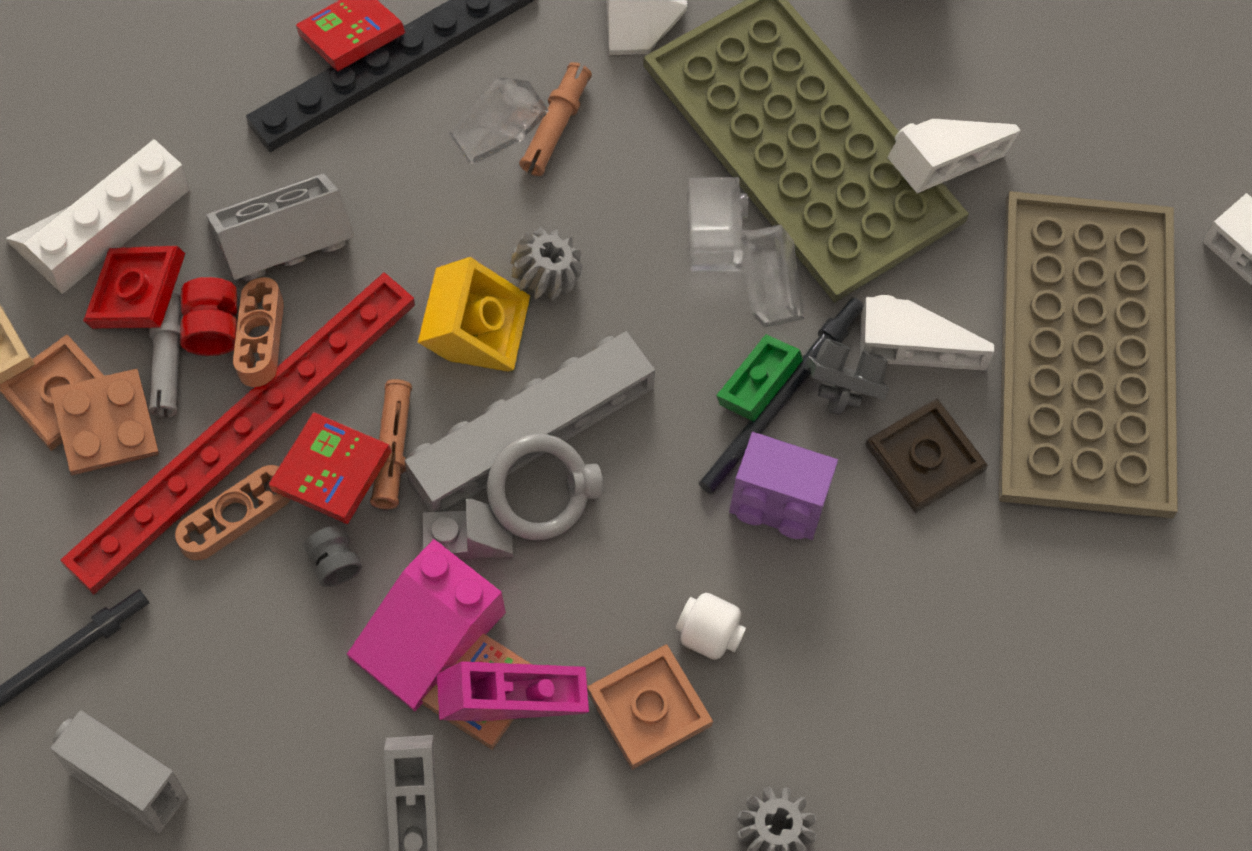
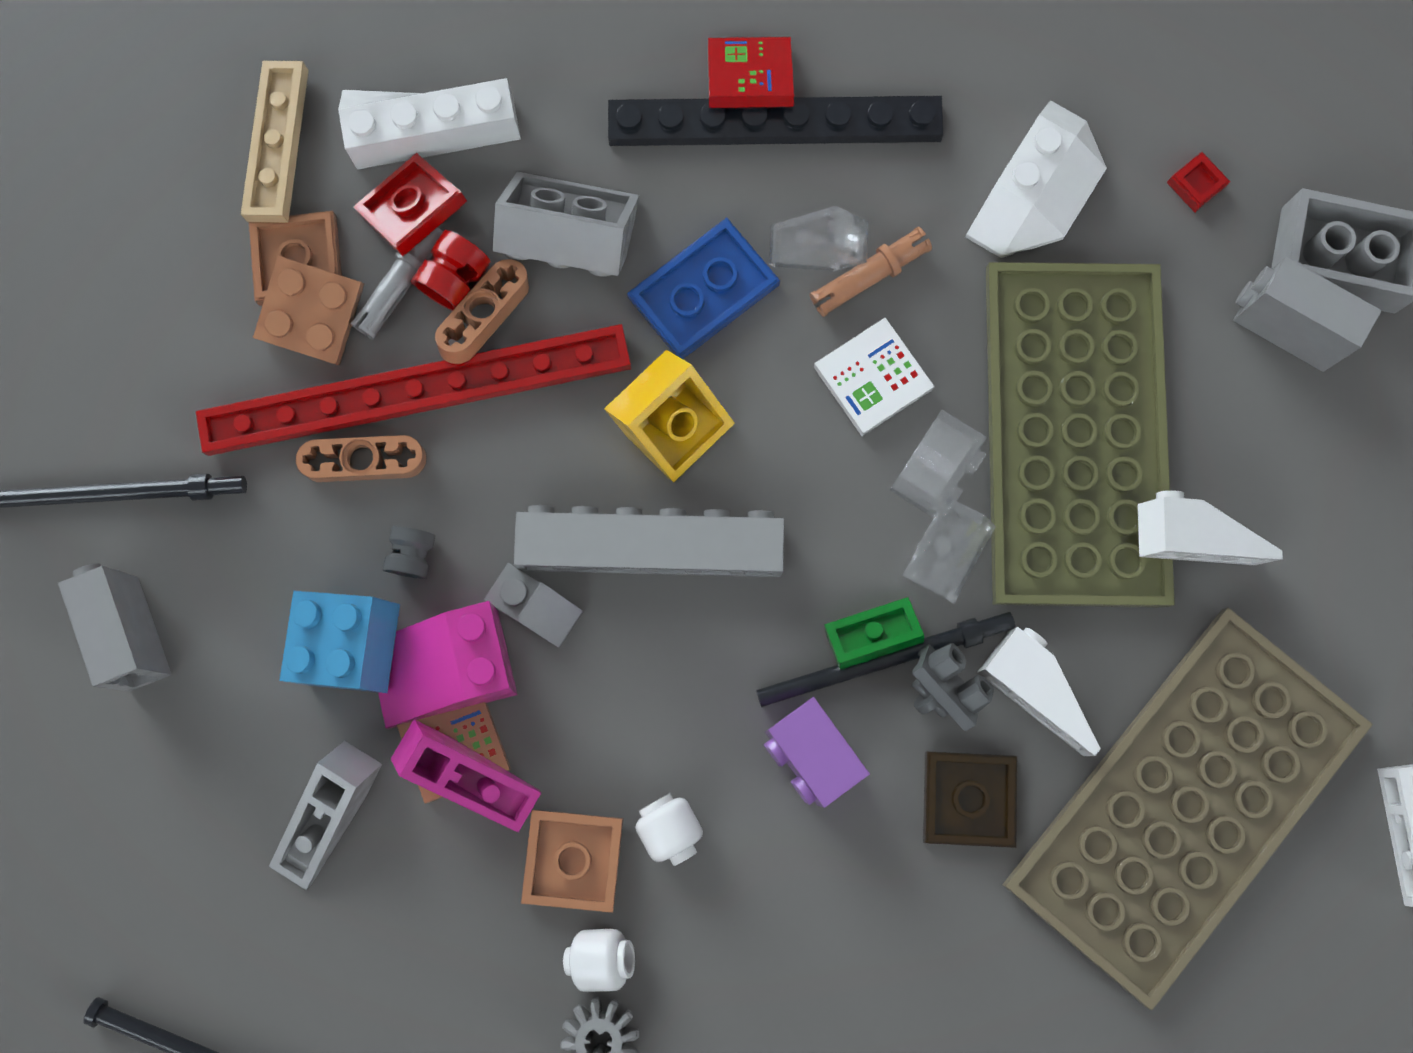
camera: 40 degrees right, 15 degrees up
(327, 657) = (340, 641): none -> dark azure brick
(330, 468) = (453, 476): red tile -> none
(393, 432) = (557, 444): nougat pin -> none
(429, 210) = (703, 289): none -> blue tile
(546, 264) = (751, 413): light grey gear -> none
(583, 483) = (657, 624): light grey piece -> none
(615, 194) = (873, 376): none -> white tile
(730, 766) = (599, 960): none -> white head

